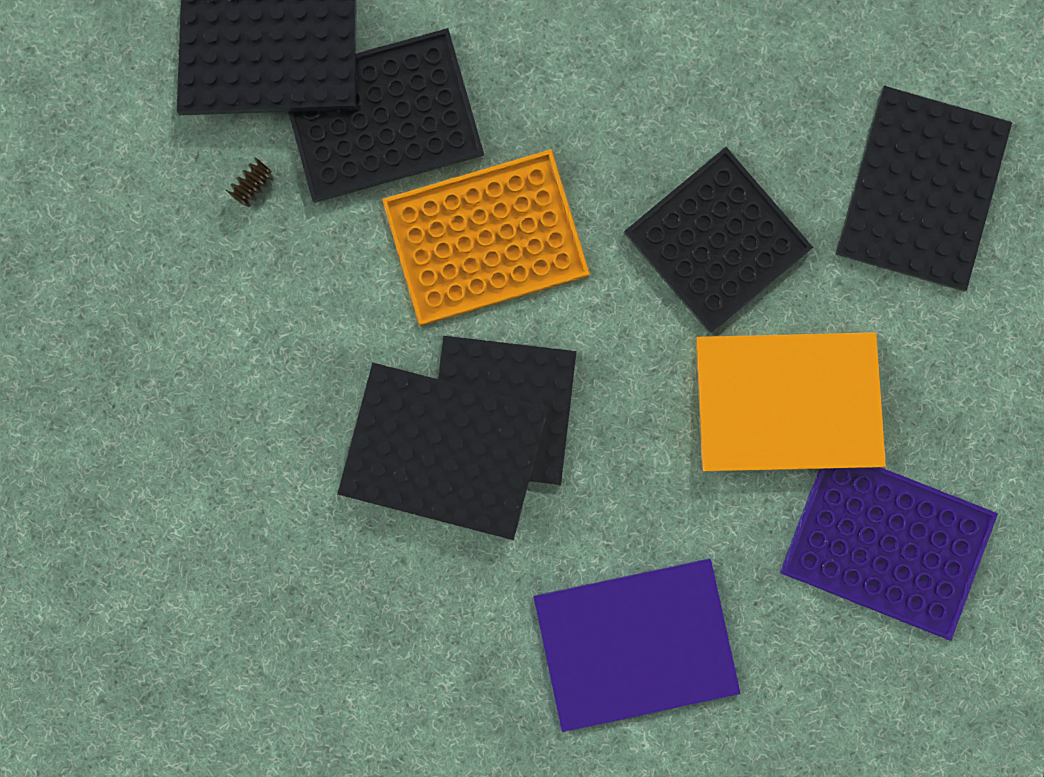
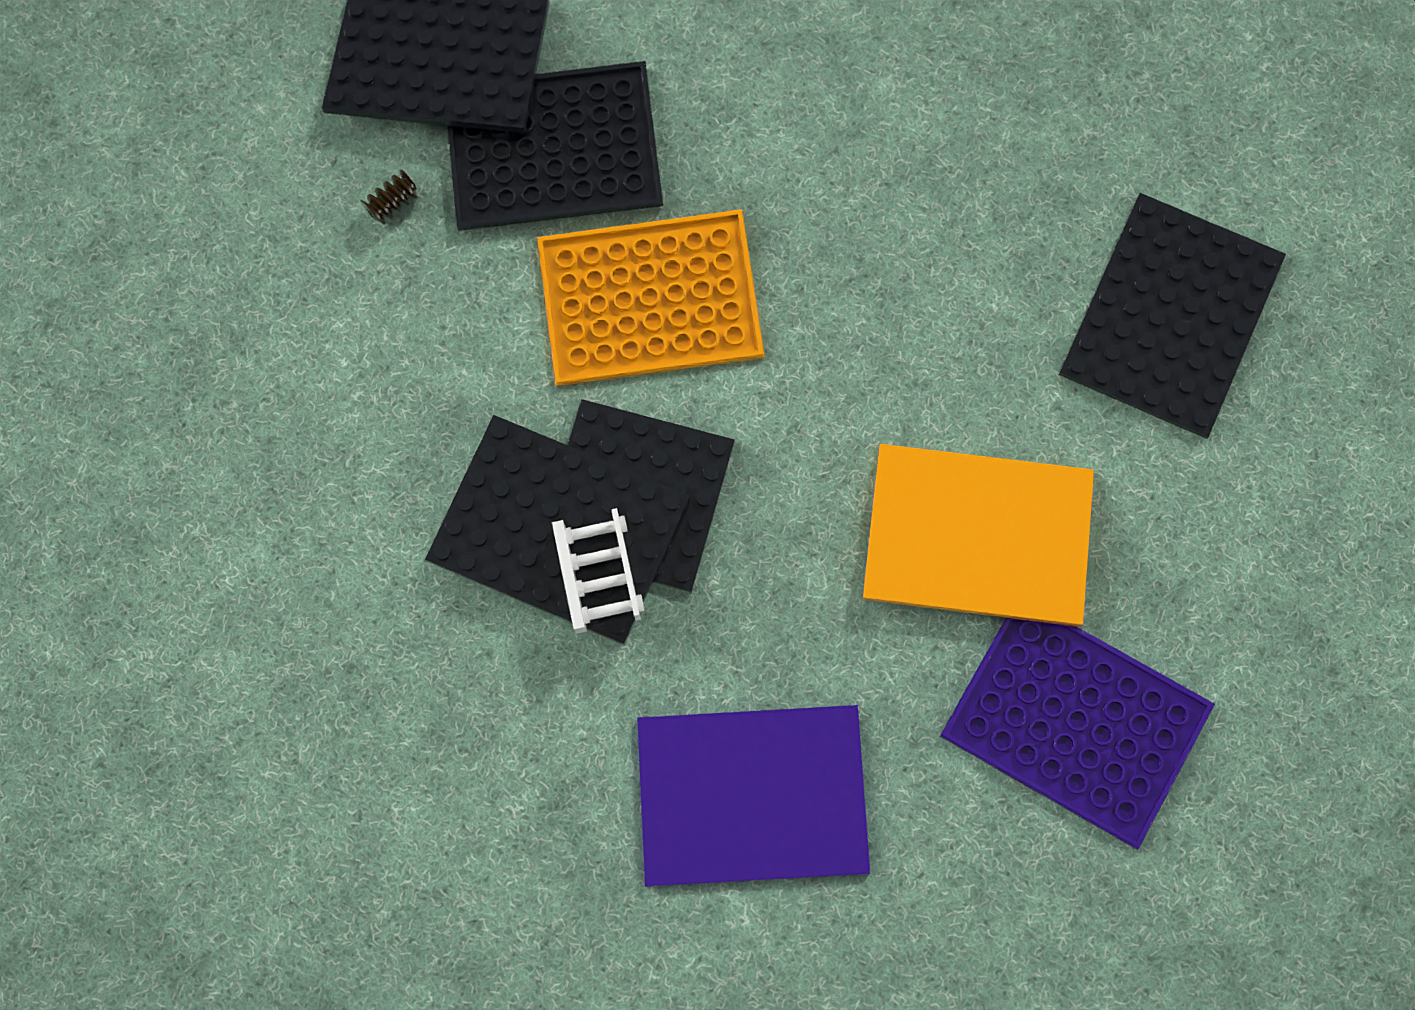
camera: 10 degrees right, 10 degrees down
(467, 504) = (572, 562): none -> white fence
(718, 240) = (920, 338): black plate -> none

